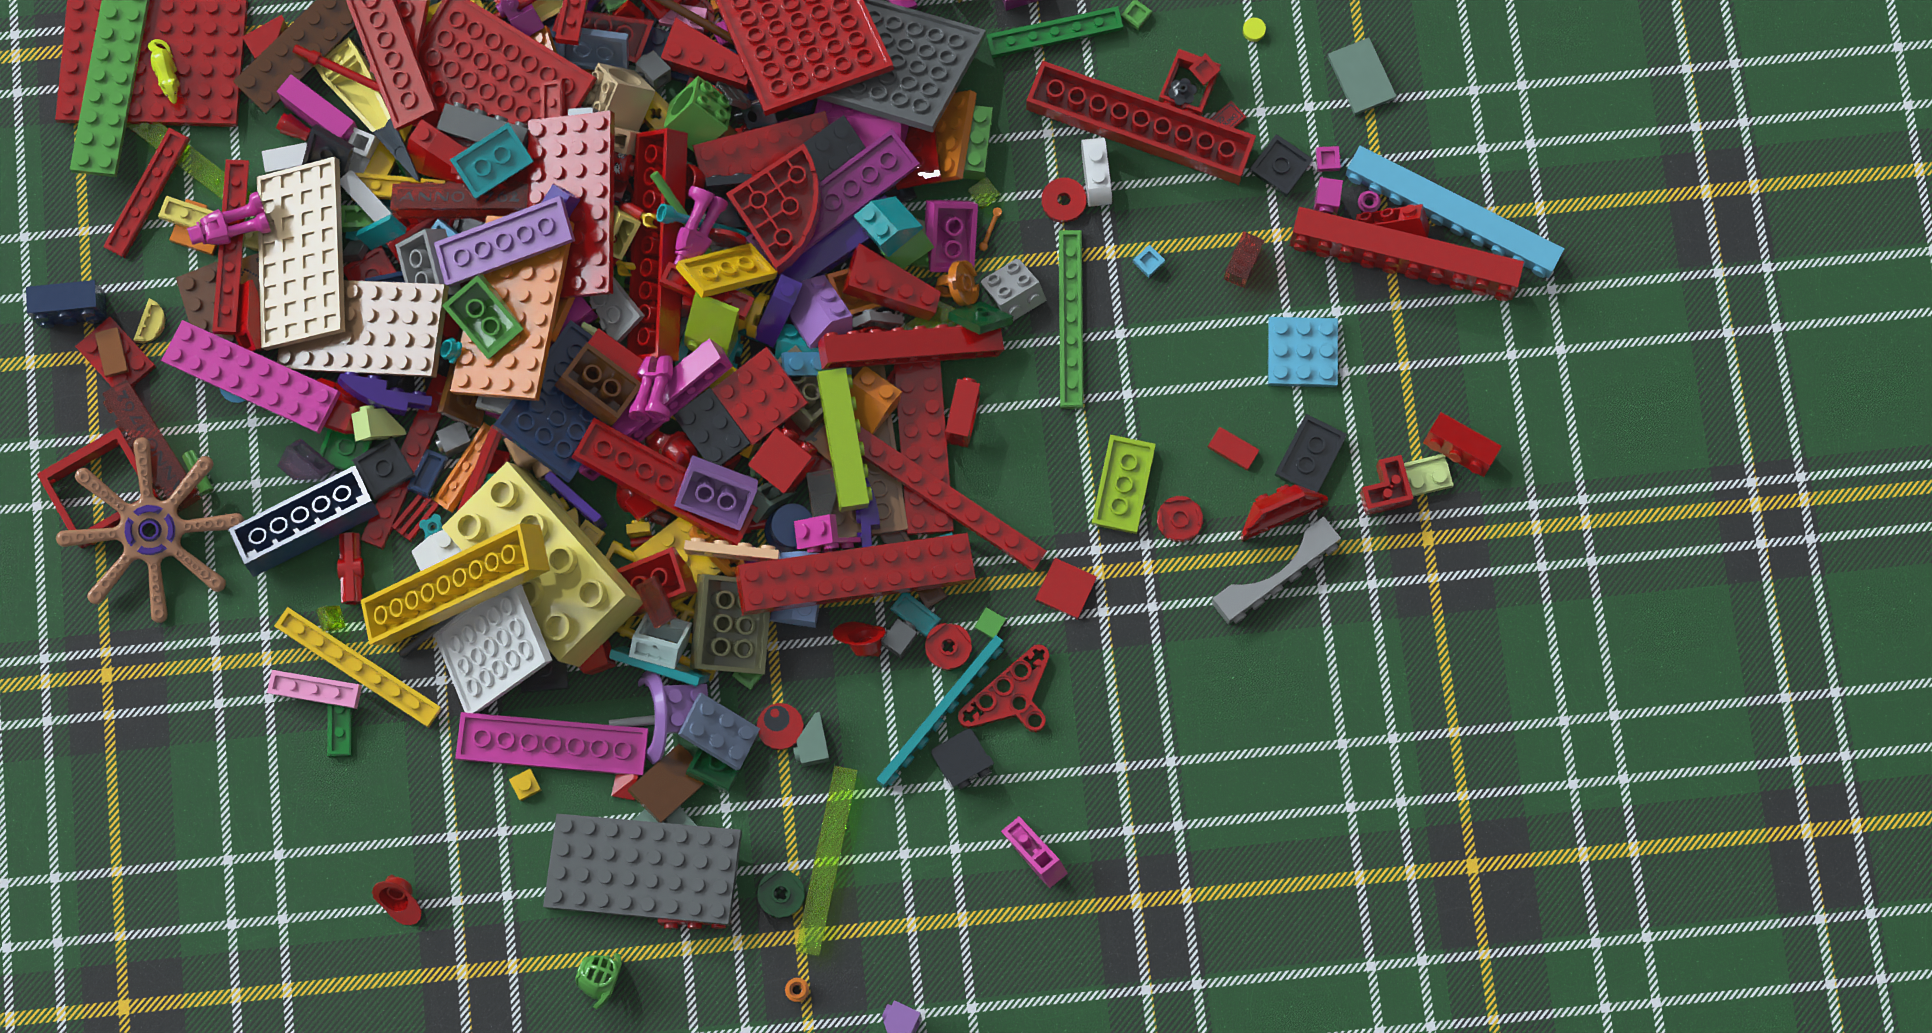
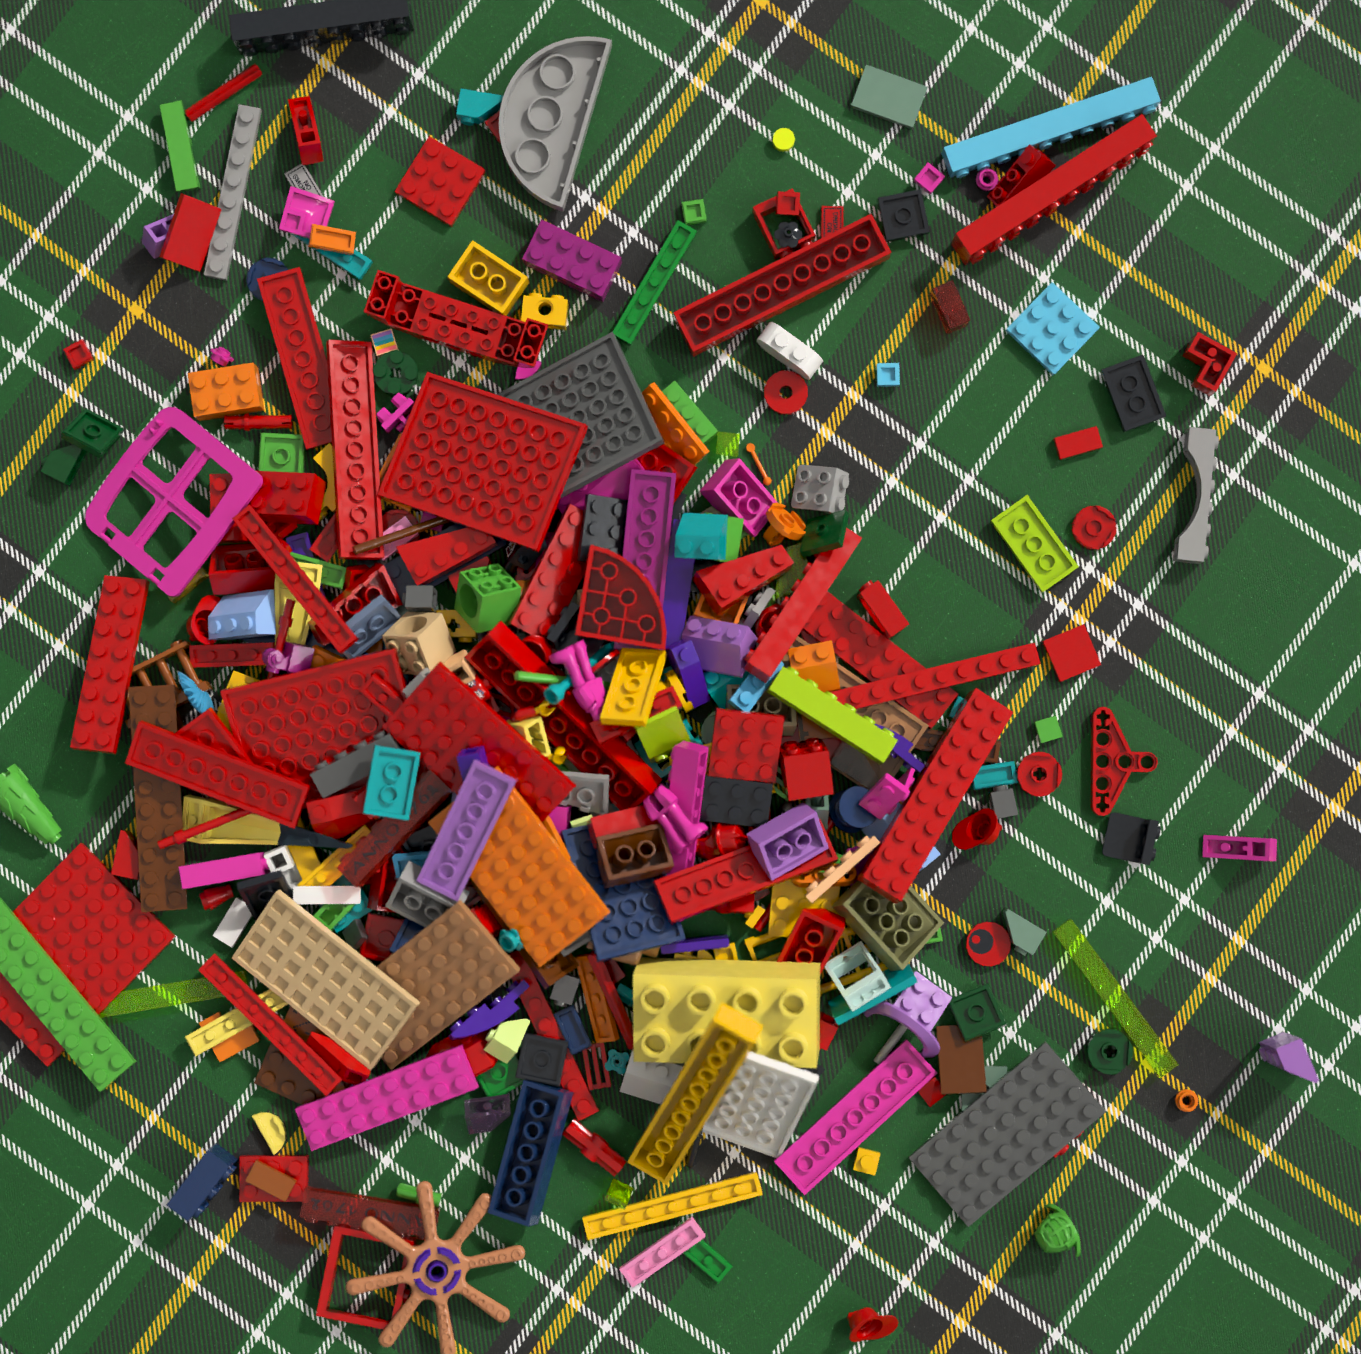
camera: 50 degrees left, 10 degrees up
(146, 192) = (167, 1048): red tile -> none
(164, 68) = (82, 952): neon yellow animal -> none
(215, 227) = (248, 1026): dark pink piece -> none
(381, 231) = (362, 905): teal tile -> none
(483, 316) = (509, 895): bright green slope -> none
(656, 601) = (830, 956): clear red tile -> none
(718, 731) = (959, 993): sand blue plate -> none
(735, 96) = (495, 558): pearl dark grey piece -> none
(934, 720) = (1084, 832): teal plate -> none
(1070, 319) = (878, 469): bright green tile -> none
(1281, 508) = (1152, 452): red wedge -> none
(1328, 195) = (962, 207): dark pink brick -> none
(1428, 475) = (1222, 323): yellowish green plate -> none
(1462, 444) = (1224, 282): red brick -> none

